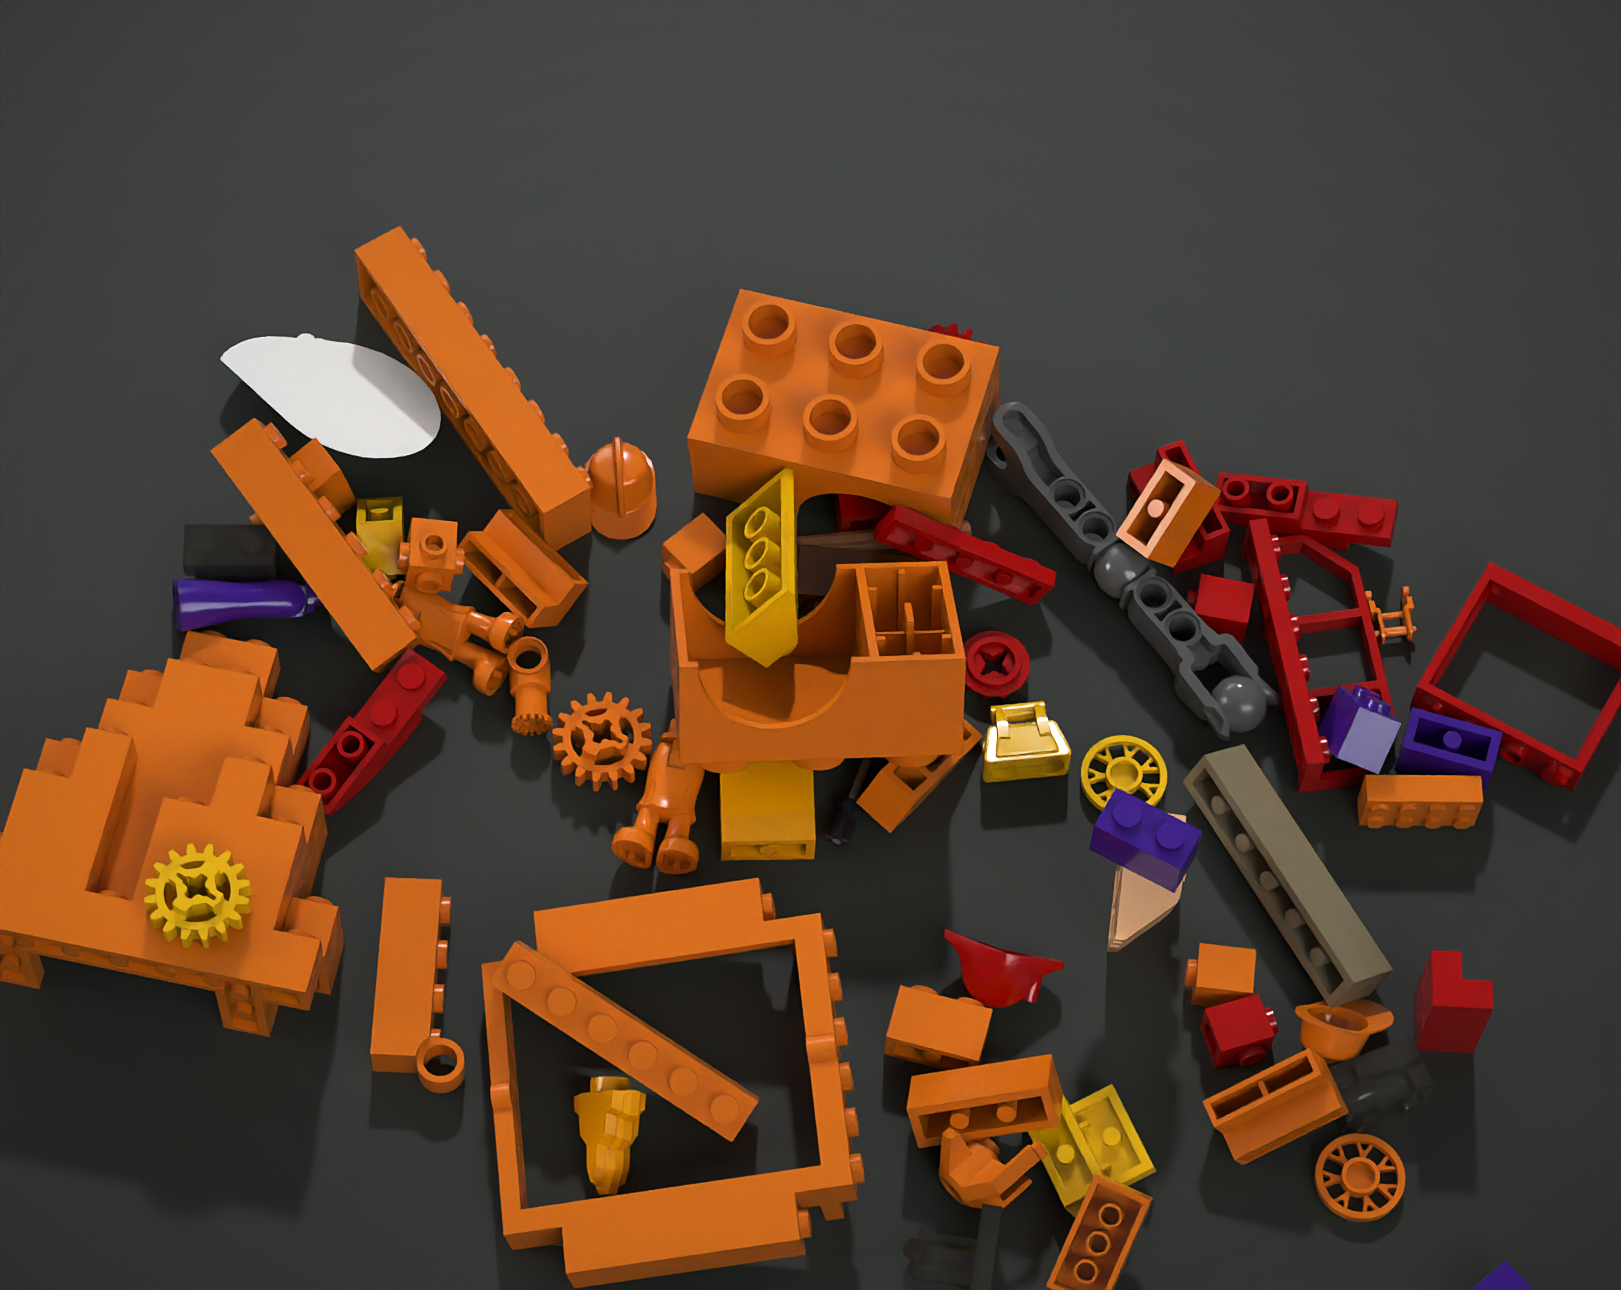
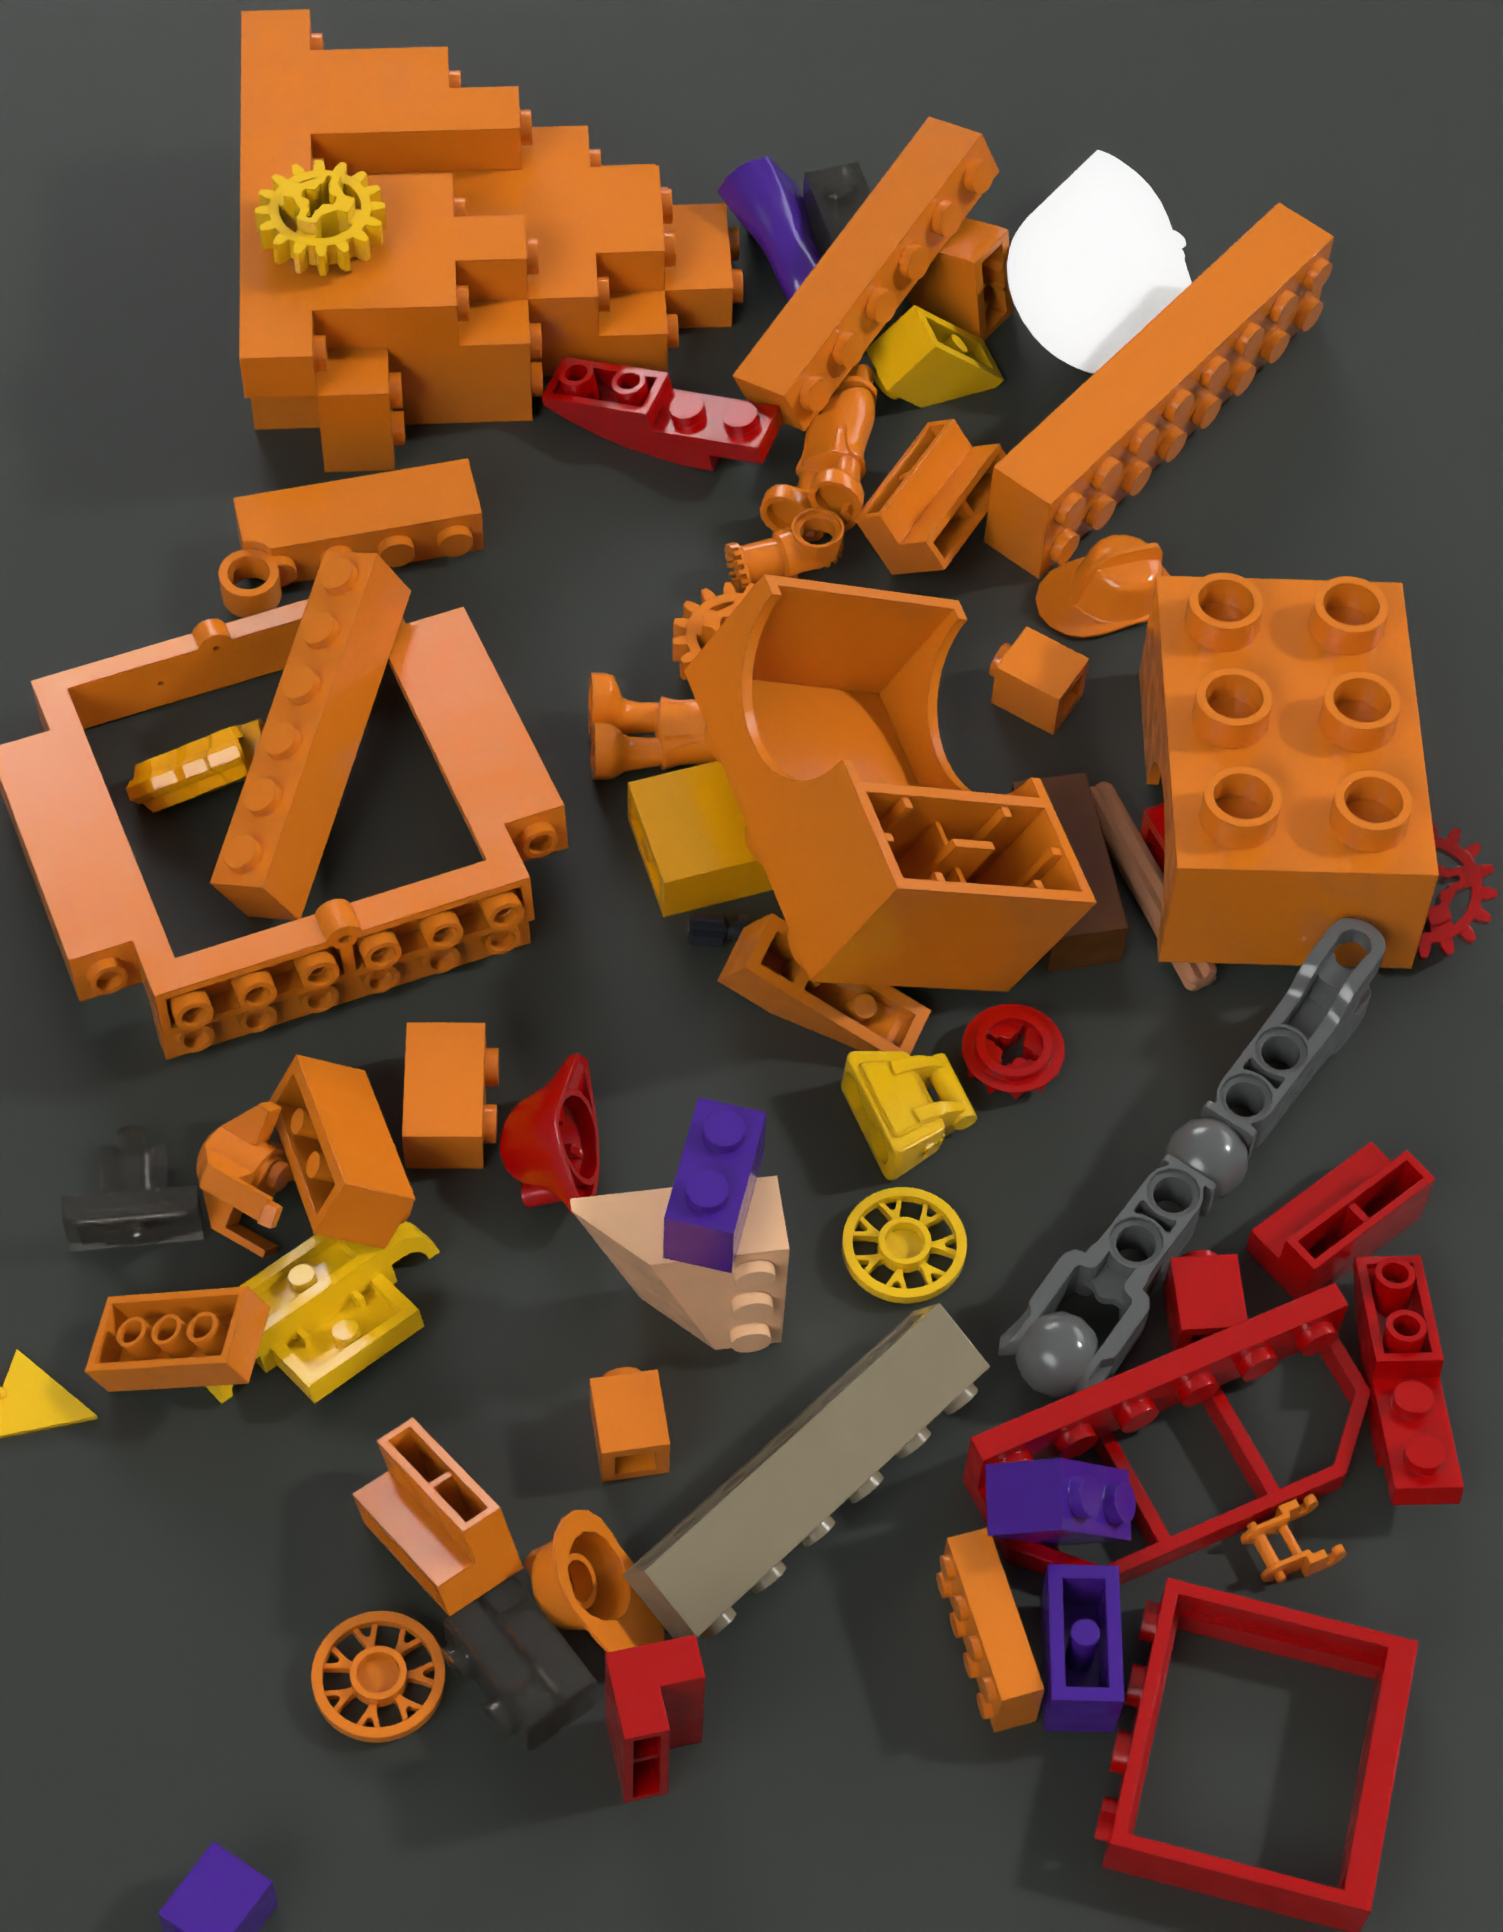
camera: 75 degrees right, 5 degrees down
(430, 555) = (905, 390): orange brick -> none
(763, 572) = (1011, 726): yellow slope -> none
(965, 555) = (1141, 928): red plate -> none
(1168, 513) = (1296, 1168): orange brick -> none
(1239, 1031) = (550, 1462): red brick -> none

